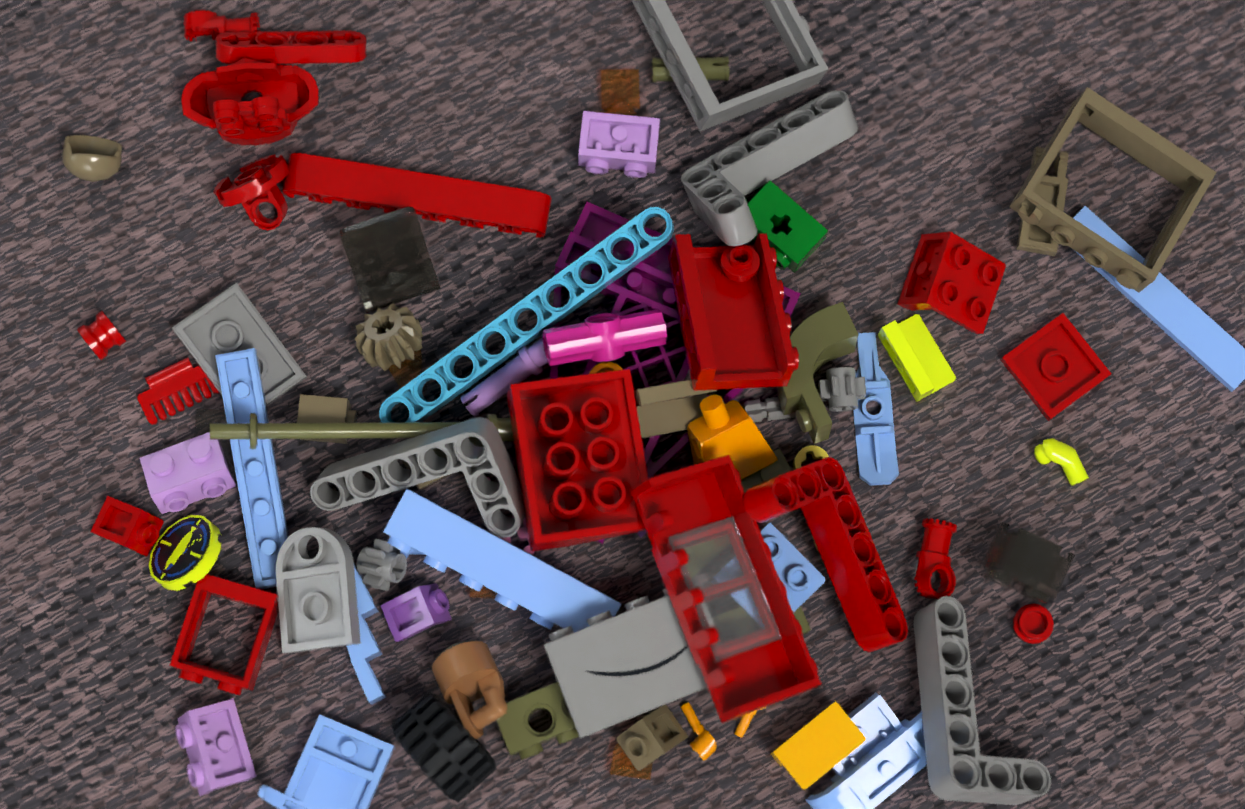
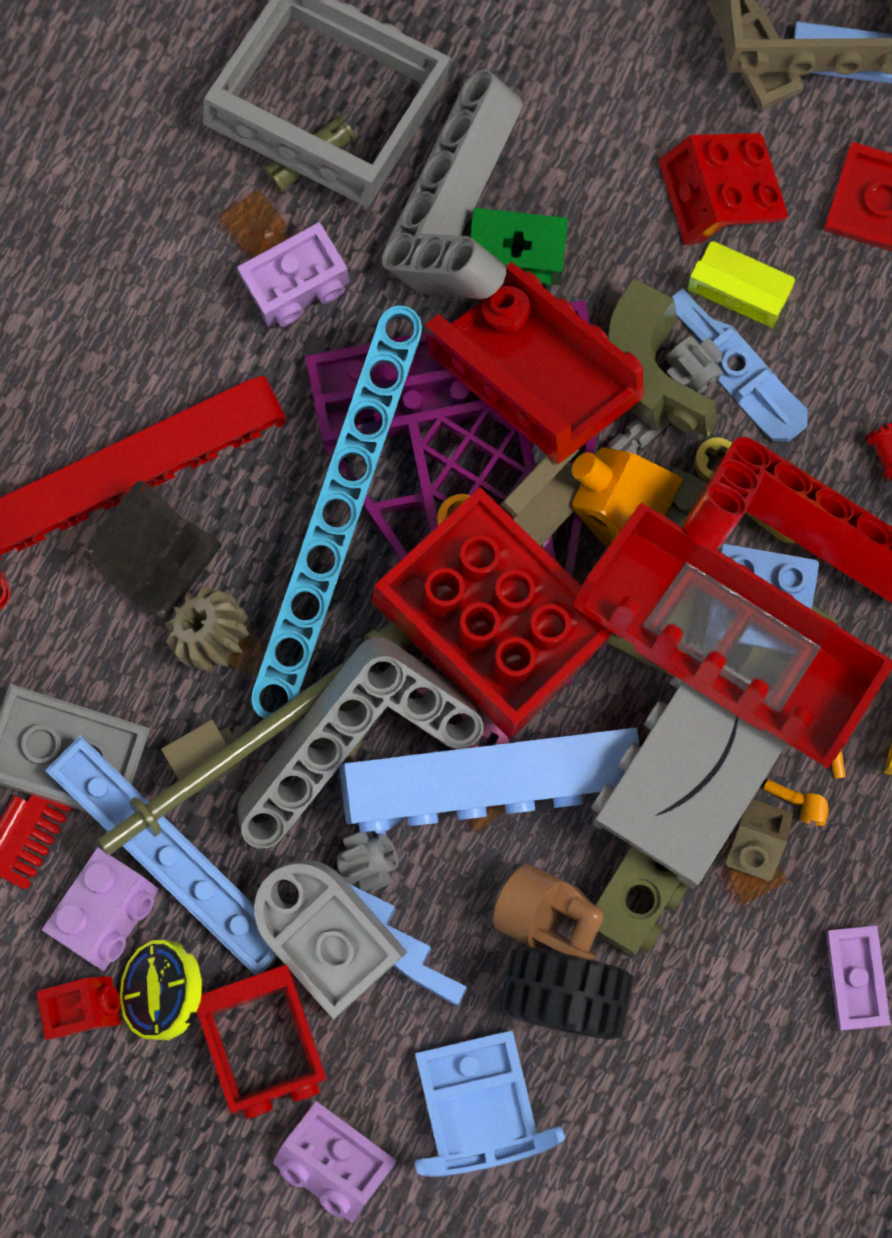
camera: 30 degrees left, 0 degrees up
(416, 611) = (435, 883): medium lavender bracket -> none
(495, 386) = (359, 575): lavender pin -> none
(604, 337) = (428, 475): dark pink piece -> none

